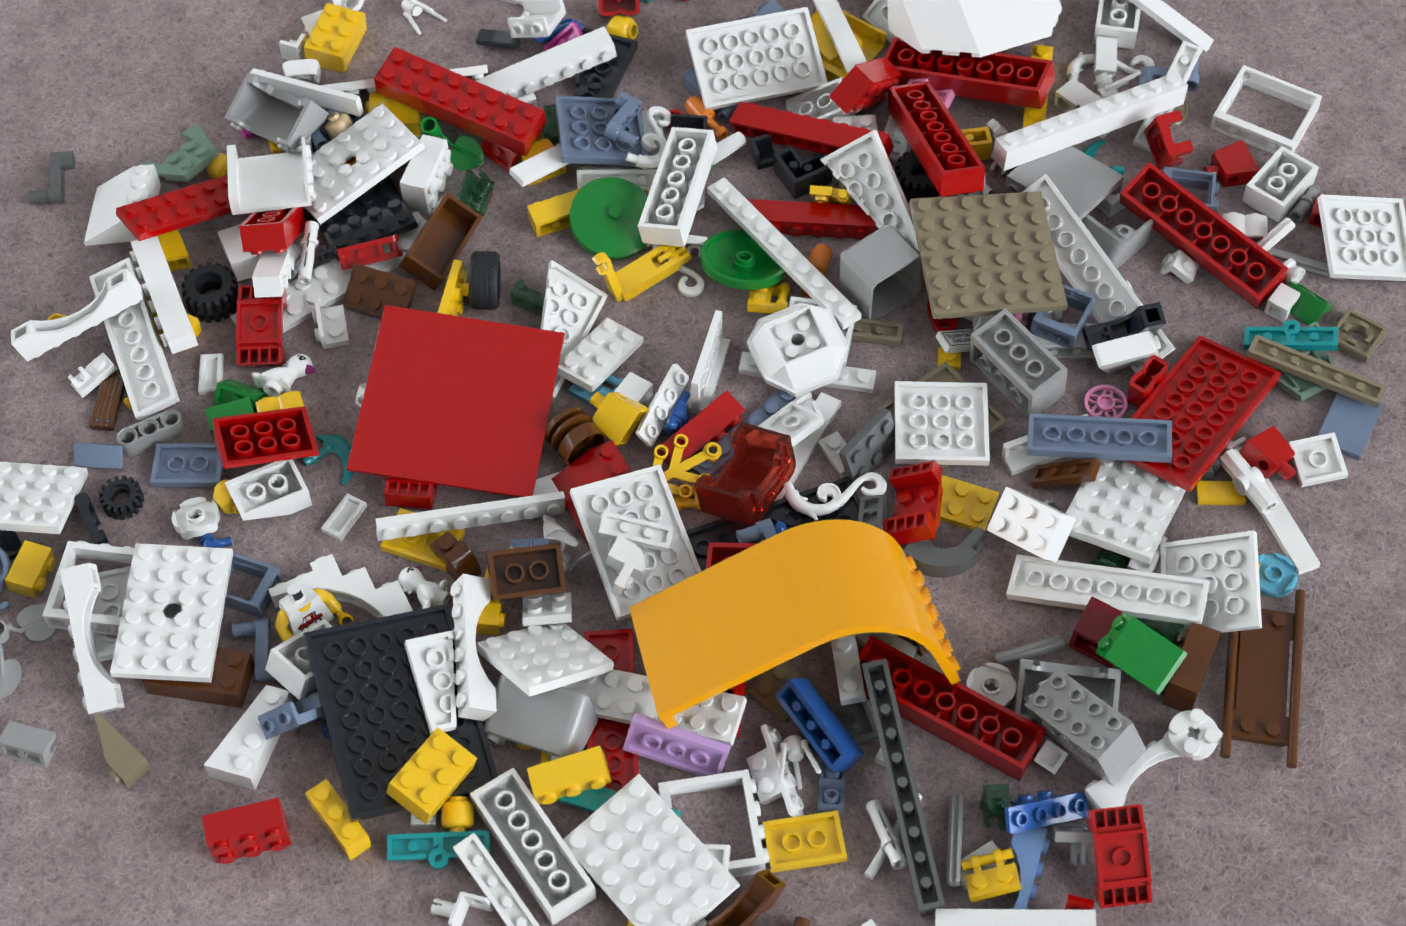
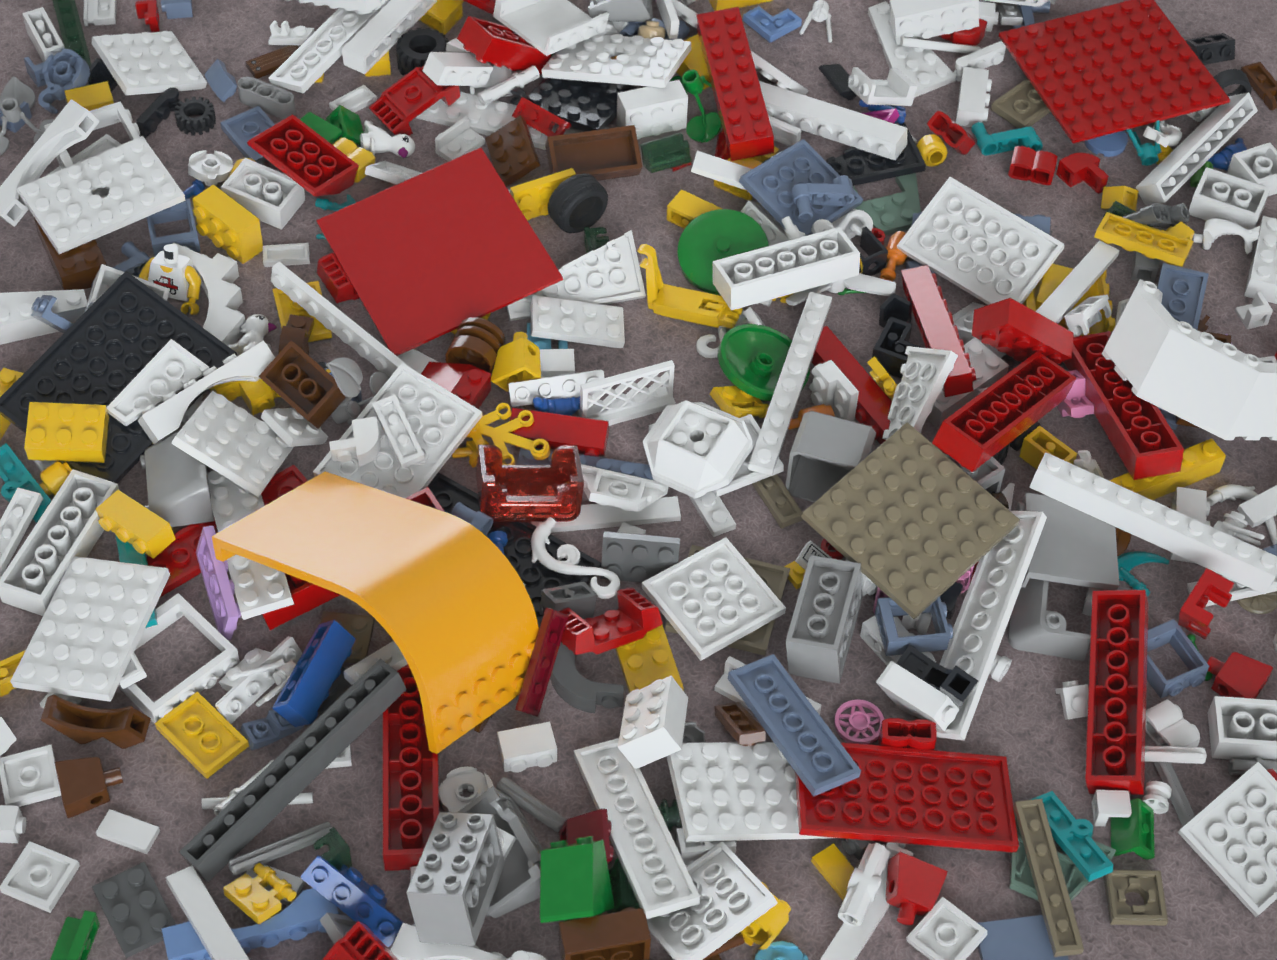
camera: 50 degrees right, 5 degrees down
(284, 537) = (227, 224): none -> yellow brick
(337, 384) = (390, 172): none -> white tile
(401, 38) = (771, 27): none -> medium blue plate
(658, 85) = (894, 211): none -> sand green wing
(810, 230) = (834, 389): none -> white plate
(869, 38) = (1087, 314): none -> white hinge
(923, 564) = (542, 662): none -> dark red tile
(980, 623) = (527, 747): none -> white brick

